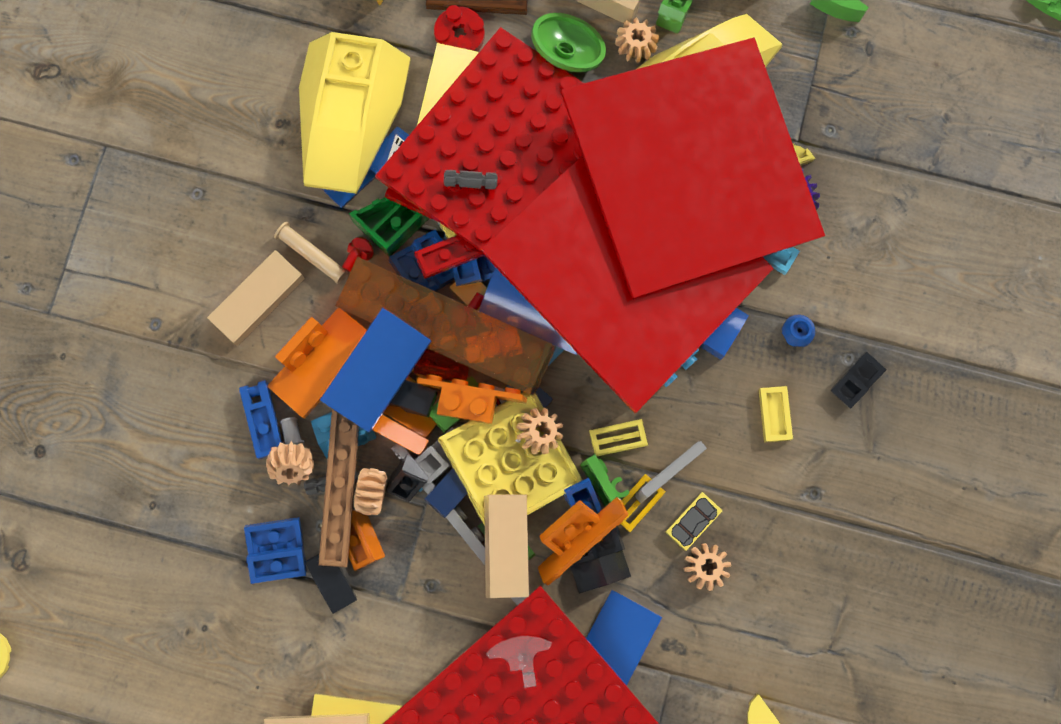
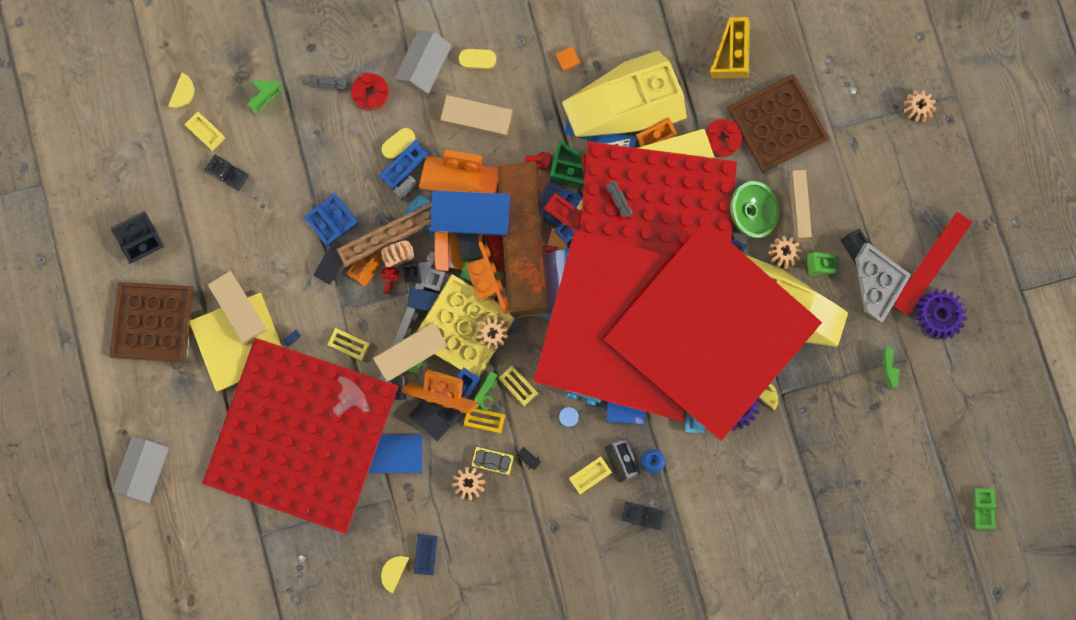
camera: 65 degrees right, 0 degrees up
(60, 648) = (204, 131): none -> light yellow tile
(61, 538) = (267, 90): none -> bright green slope
(97, 456) = (327, 82): none -> dark grey axle
(127, 406) = (368, 81): none -> red plate
(132, 650) = (226, 172): none -> black slope
(145, 322) = (423, 61): none -> light grey slope
(185, 256) = (477, 59): none -> light yellow tile
(230, 412) = (398, 143): none -> light yellow tile
(253, 151) = (567, 59): none -> orange tile
(289, 463) = (386, 196): light nougat gear -> none
(310, 252) = (524, 130): tan pin -> none
(390, 516) = (390, 274): none -> red plate
(398, 687) = (292, 338): none -> dark blue tile
(410, 100) = (657, 133): none -> orange slope
(427, 632) = (363, 351): none -> light yellow tile
(535, 581) = (401, 382): none -> black pin
(670, 471) = (513, 427): light grey tile -> none
(690, 399) = (568, 417): none -> light blue tile
(716, 475) = (528, 458): none -> black pin
(764, 670) = (425, 554): none -> dark blue tile
(778, 366) = (622, 460): none -> black slope

